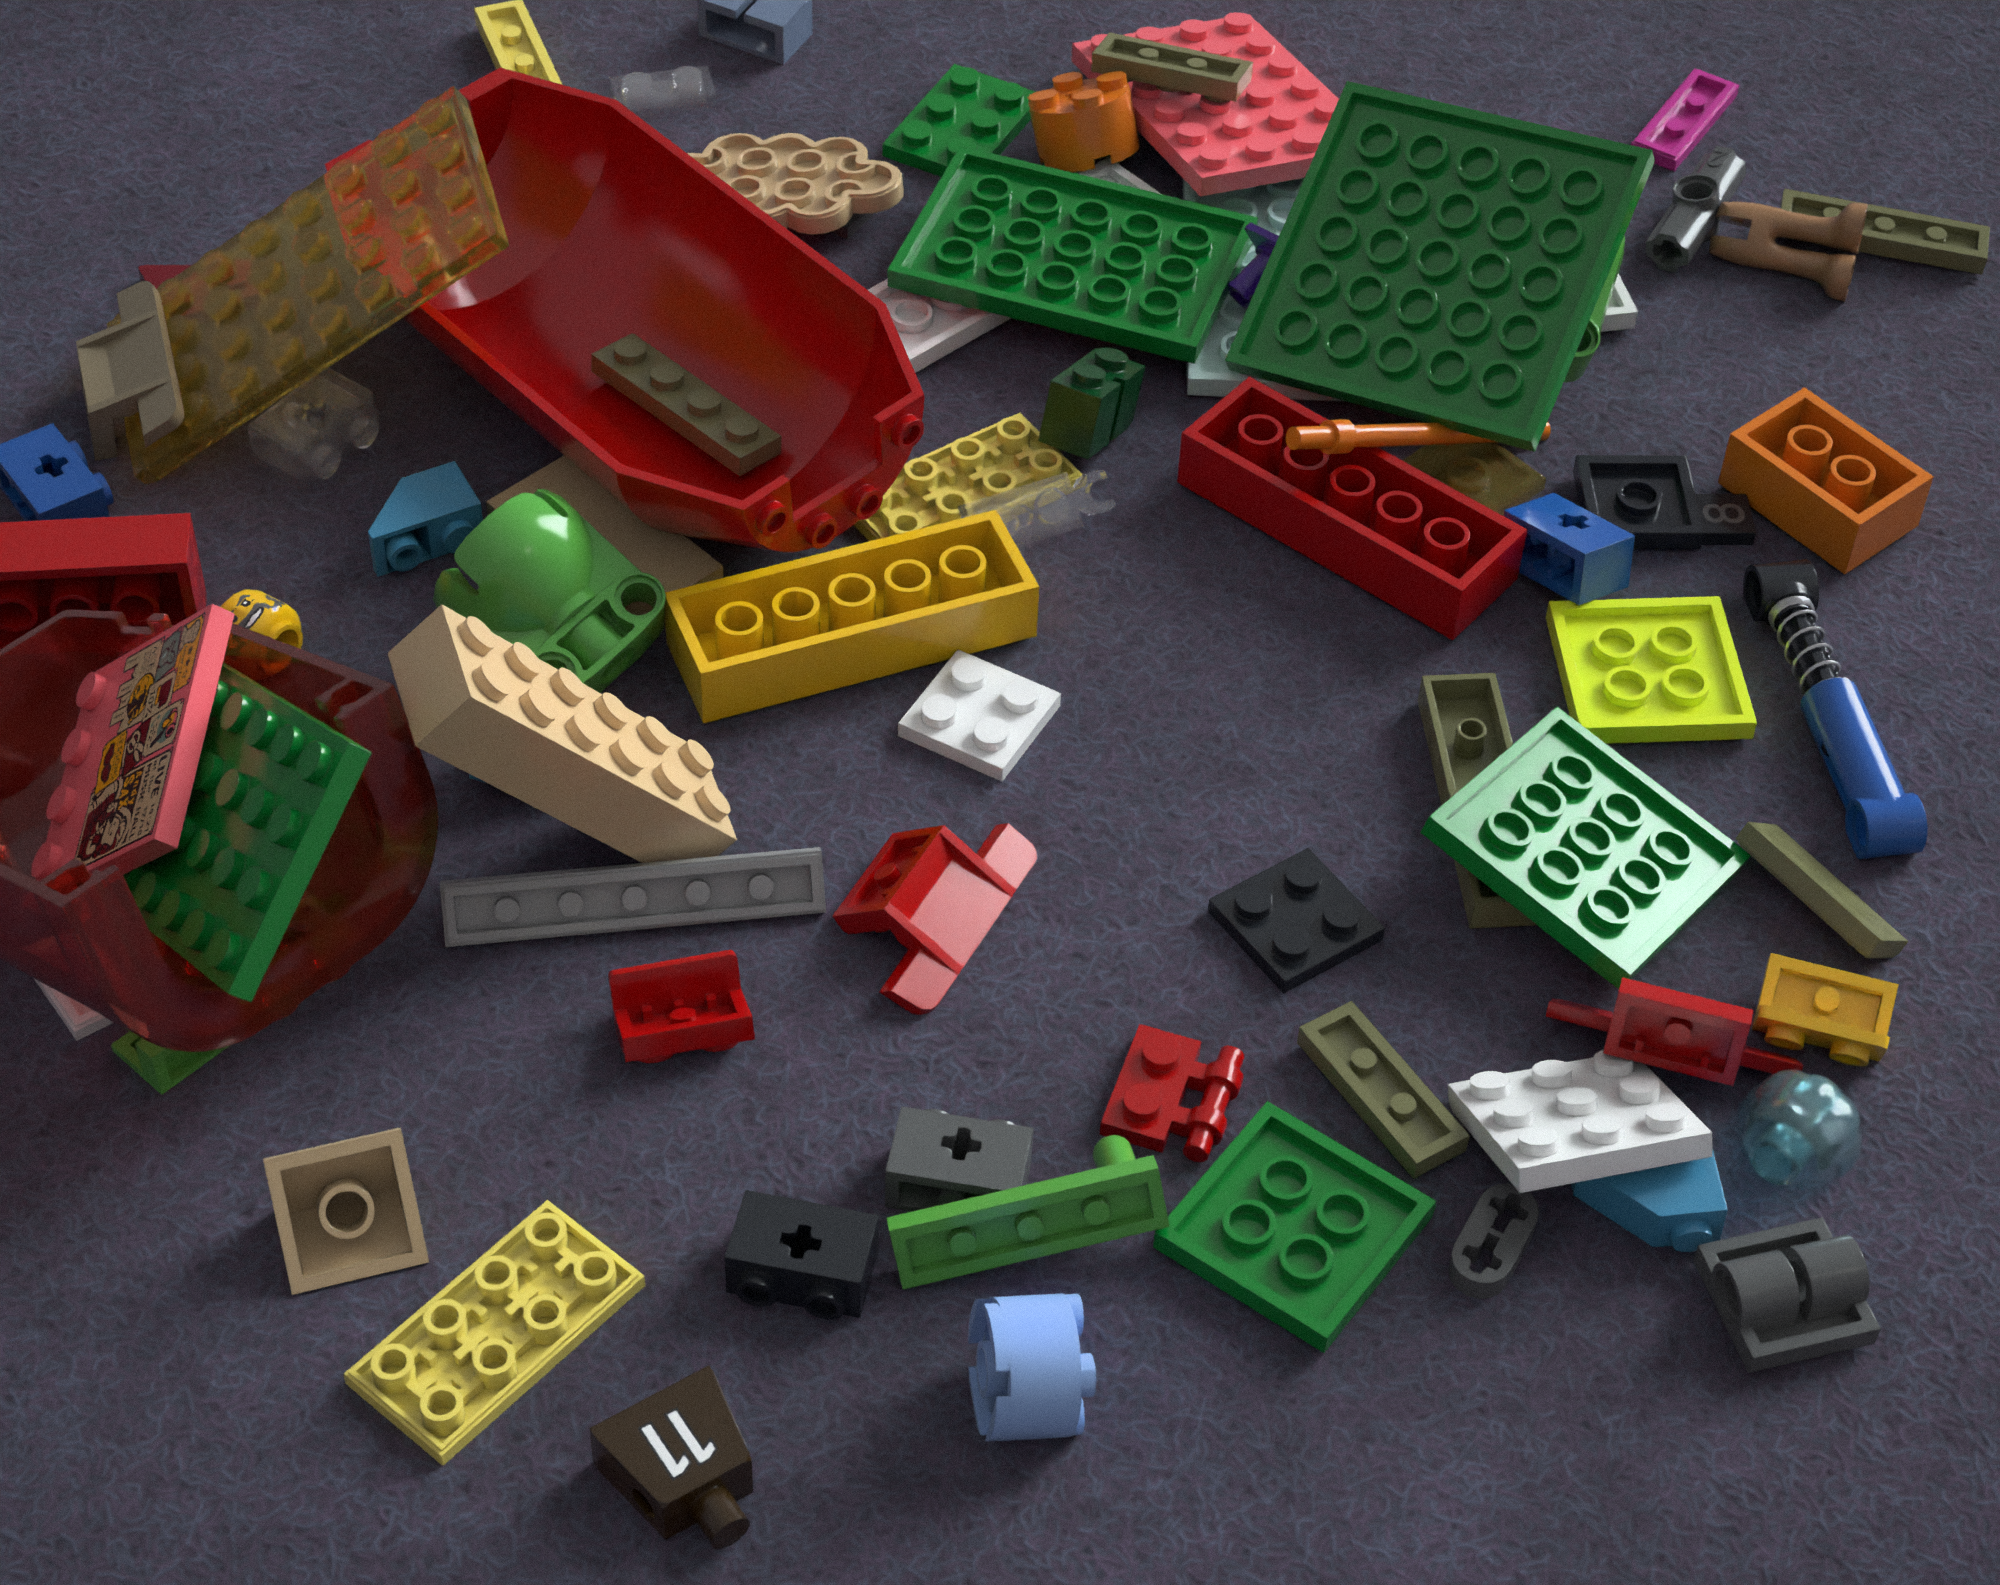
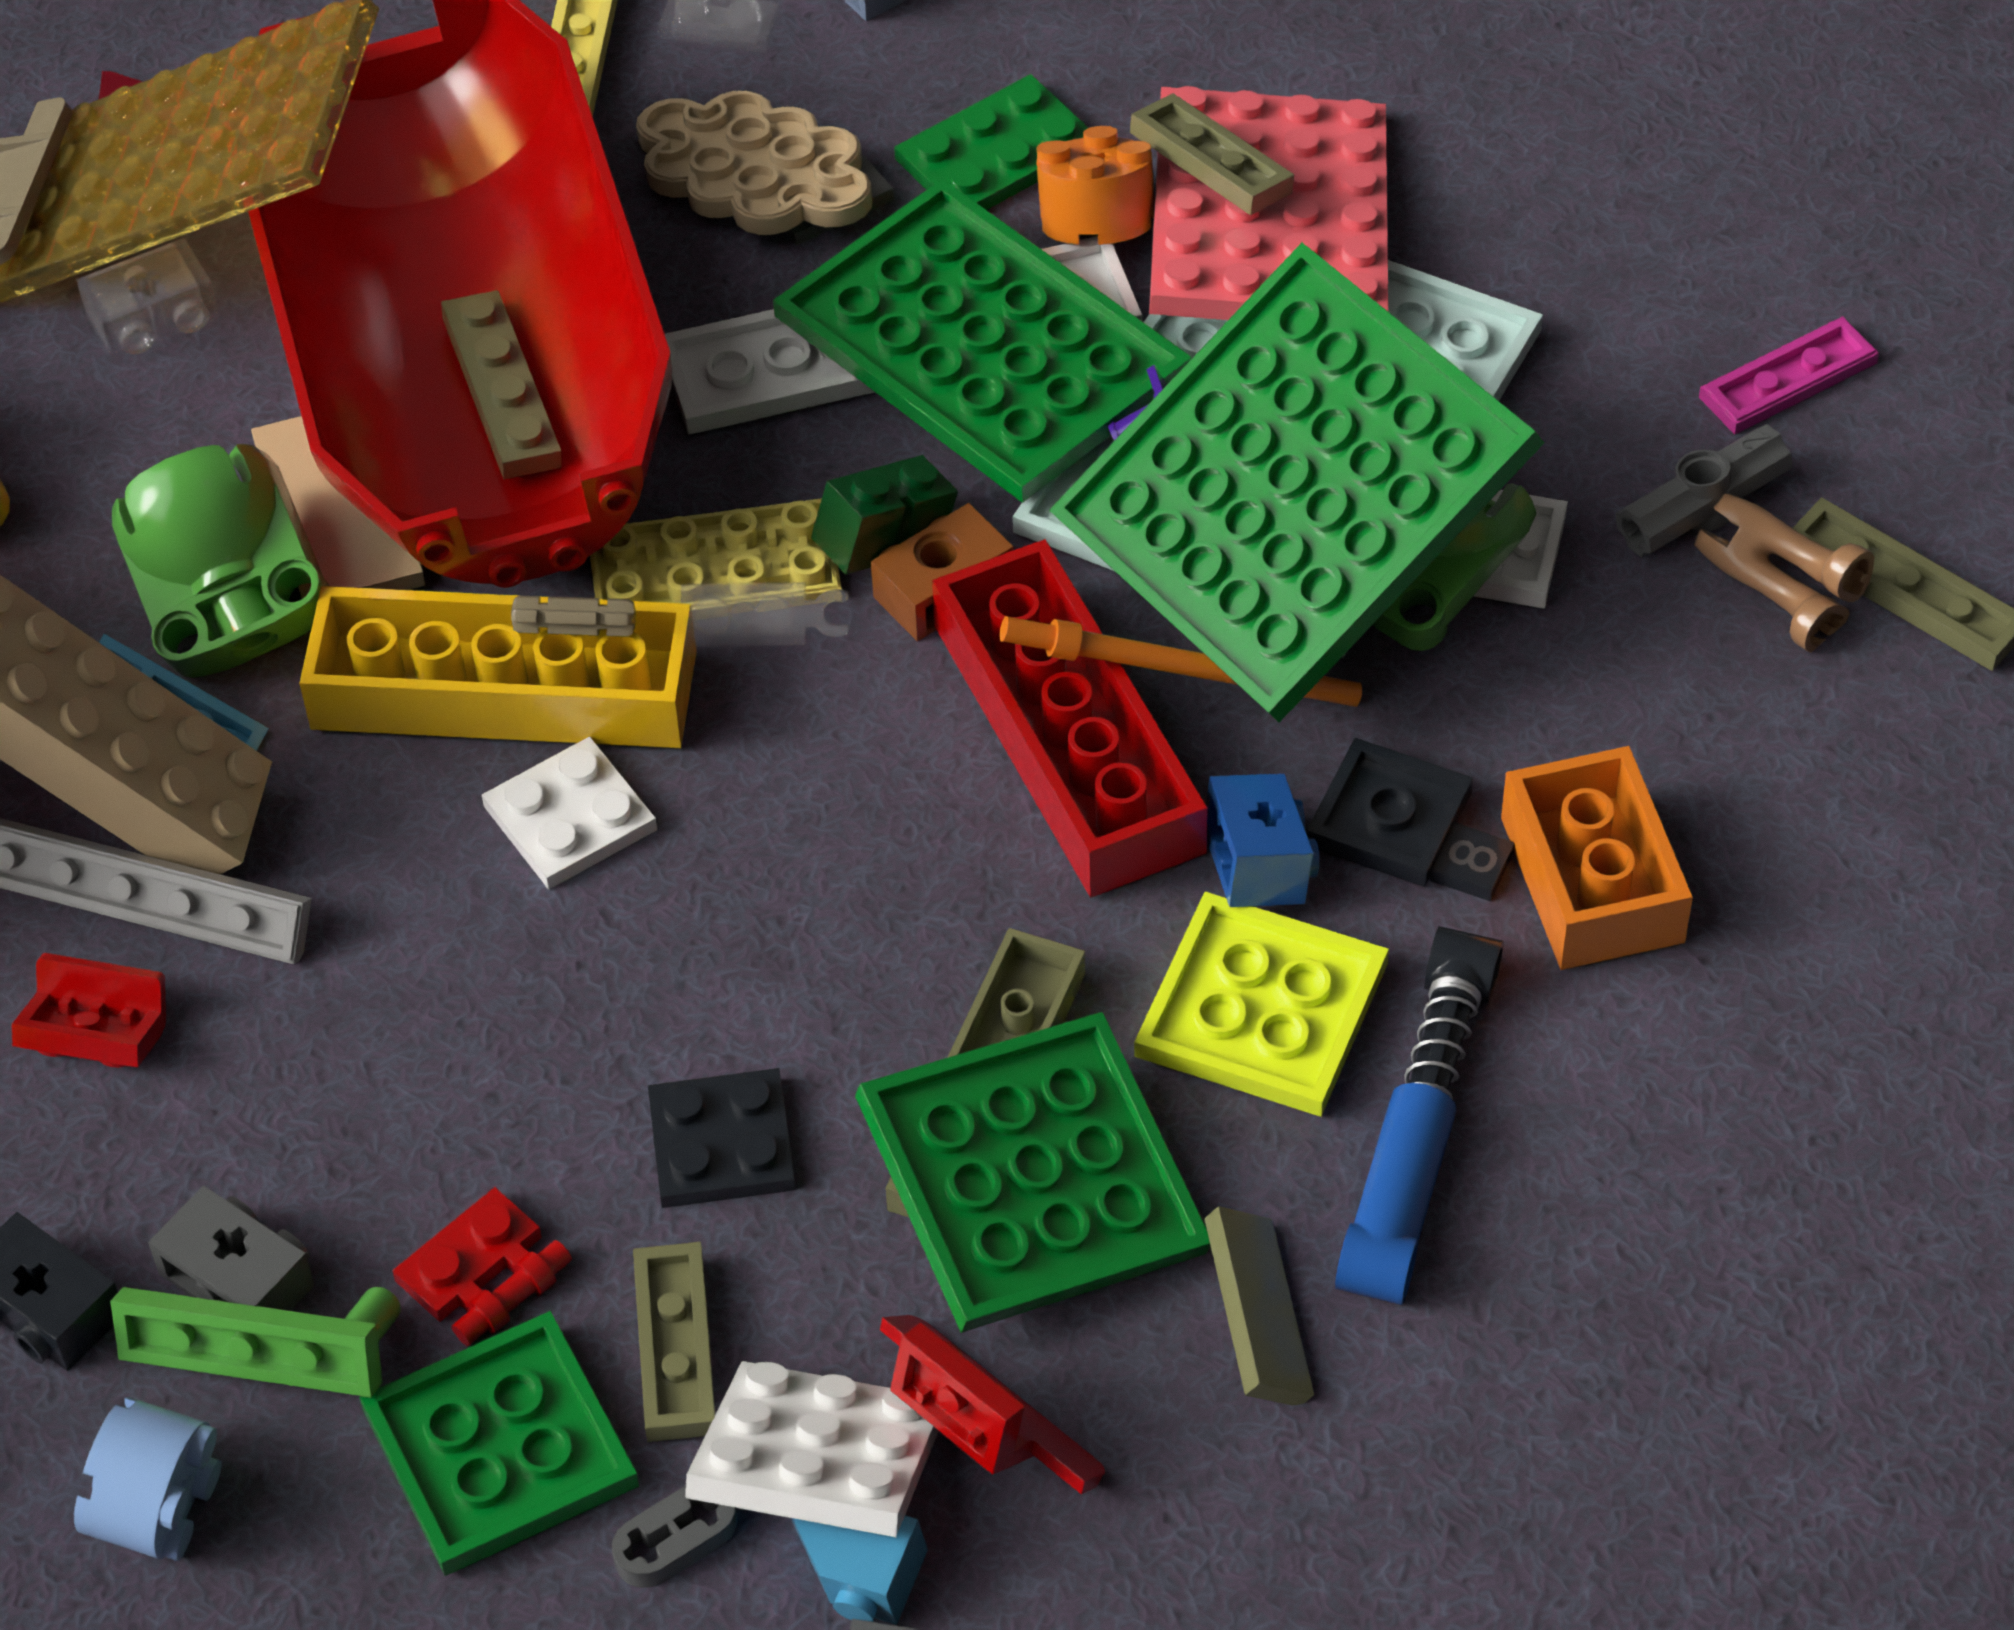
camera: 30 degrees right, 5 degrees up
(423, 519) = (180, 420): dark azure slope -> none
(911, 545) = (573, 616): none -> dark tan axle
(936, 903) = (391, 994): red plate -> none
(1148, 441) = (906, 570): none -> dark orange brick
(1480, 472) = (1228, 732): clear yellow tile -> none
(1792, 1121) = (1046, 1541): clear light blue plant -> none
(1825, 1009) = (1163, 1432): yellow bracket -> none

